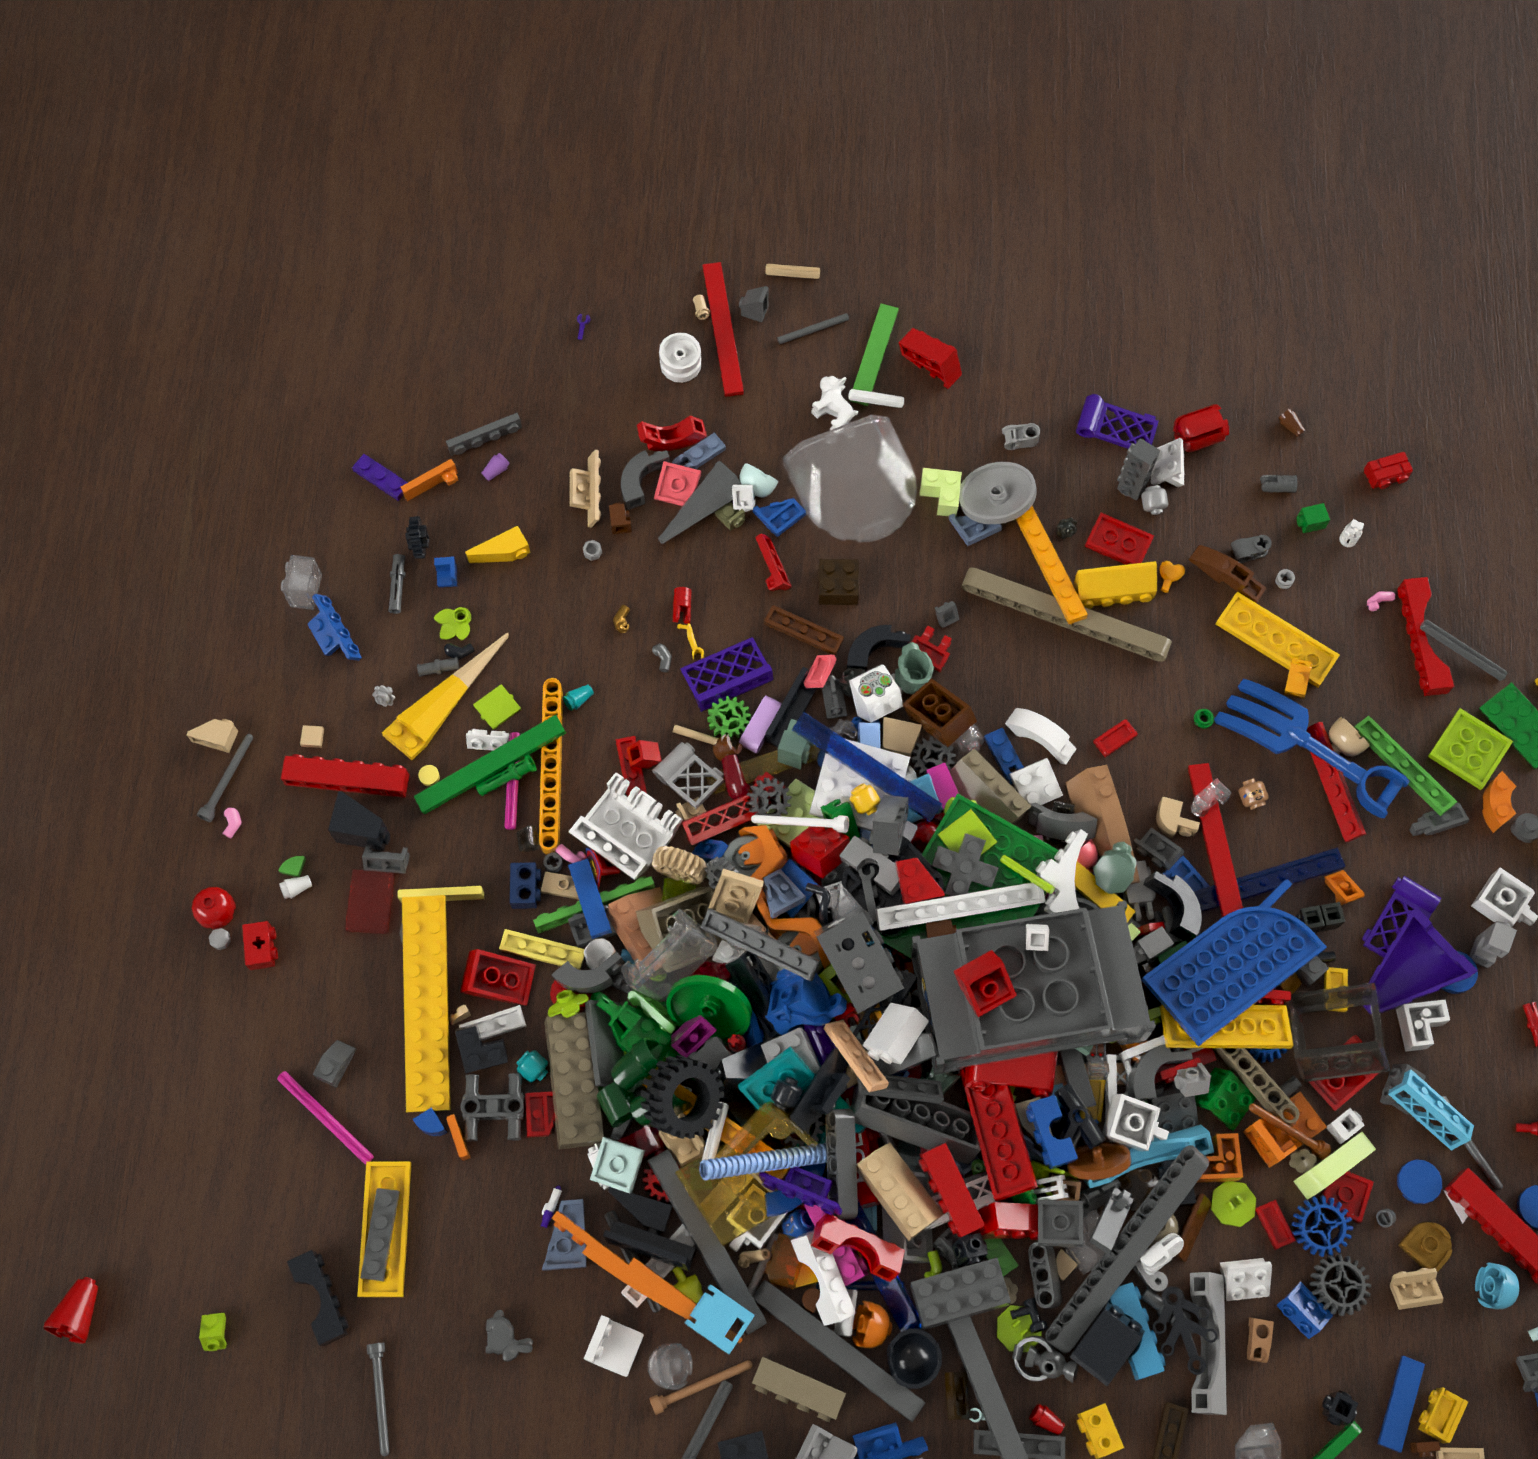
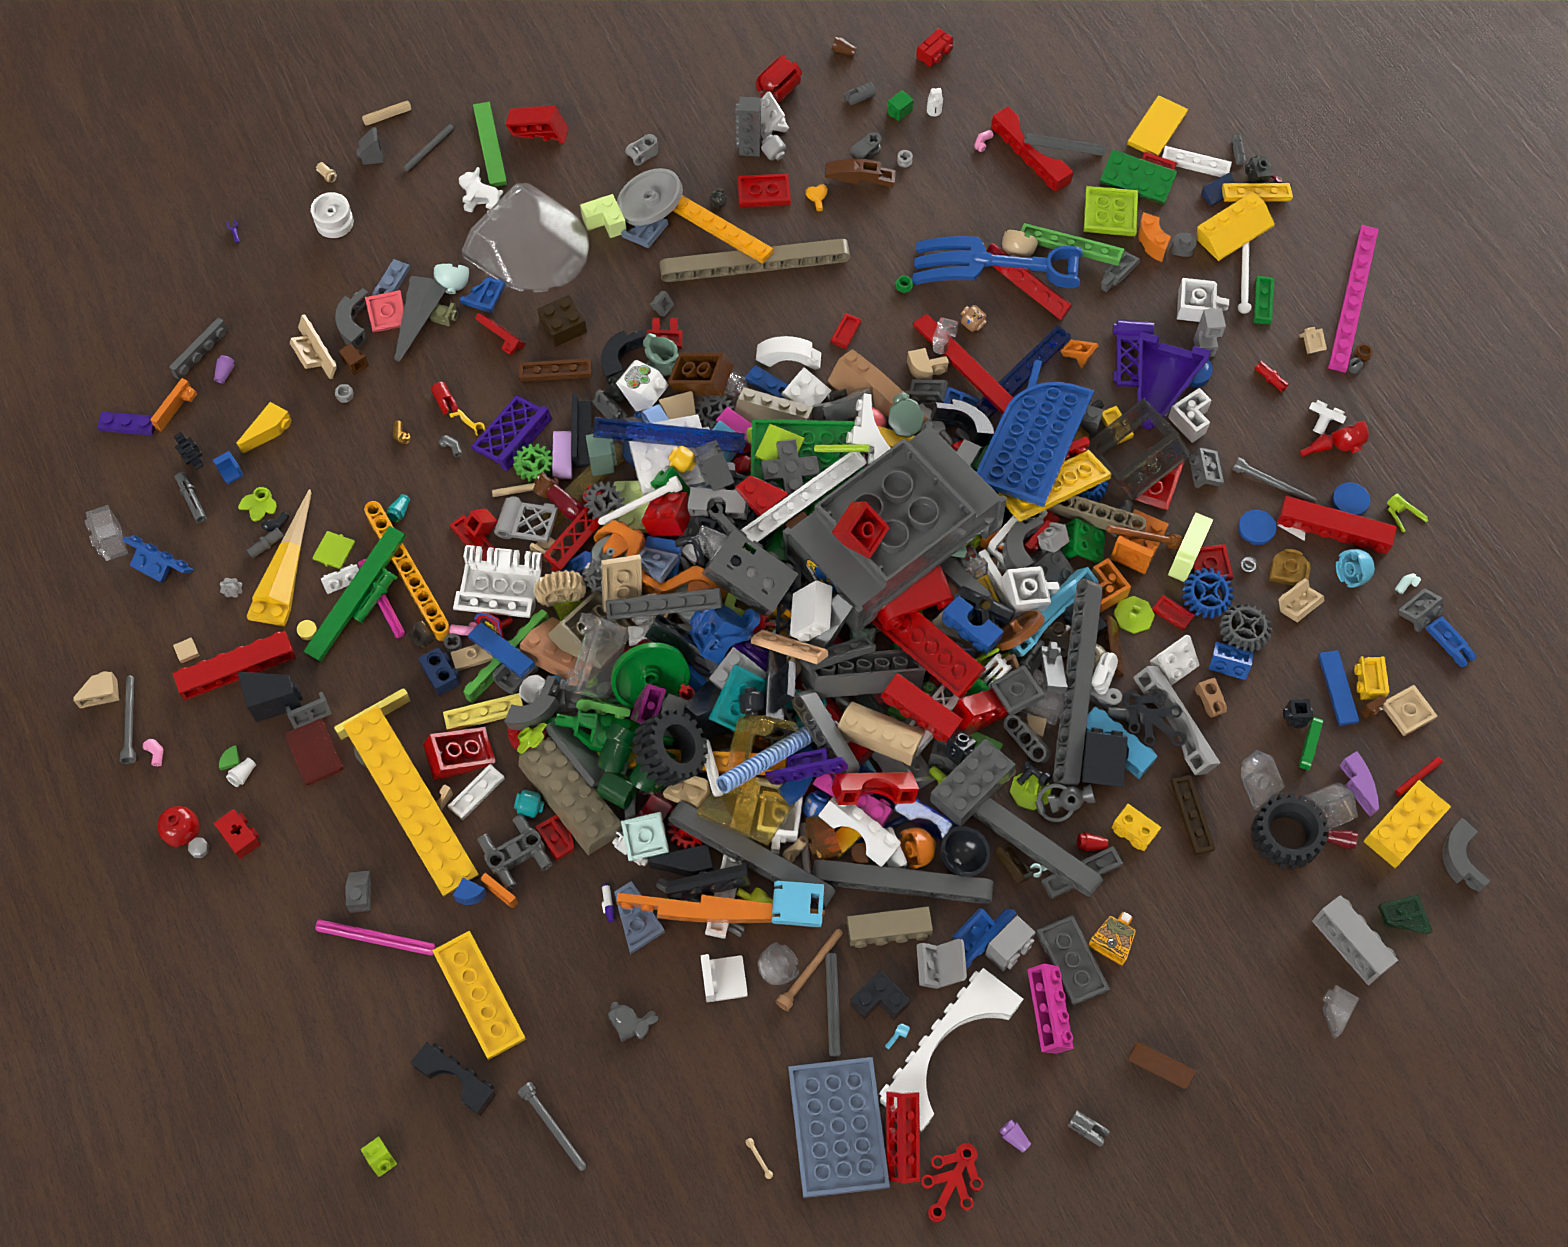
camera: 30 degrees left, 5 degrees down
(74, 1312) = (245, 1209): red cone -> none
(380, 1234) = (478, 999): dark grey plate -> none
(478, 1054) = (476, 818): black brick -> none
(672, 437) = (363, 276): red arch -> none
(723, 329) = (354, 181): red tile -> none
(743, 497) = (447, 292): white bracket -> none
(820, 671) = (586, 392): coral tile -> none
(876, 398) = (511, 174): white axle -> none
(1037, 937) = (880, 477): white slope -> none
(1092, 421) = (691, 113): dark purple piece -> none
(1116, 584) = (782, 217): yellow slope -> none
(1275, 637) = (925, 202): yellow plate -> none
(1298, 678) = (958, 220): light orange torso -> none
(1302, 1160) = (1165, 555): dark tan plant -> none
(1322, 917) = (1079, 374): pearl dark grey hips -> none
(1337, 1129) = (1181, 515): white brick -> none
(1436, 1109) = (1238, 464): medium azure fence -> none

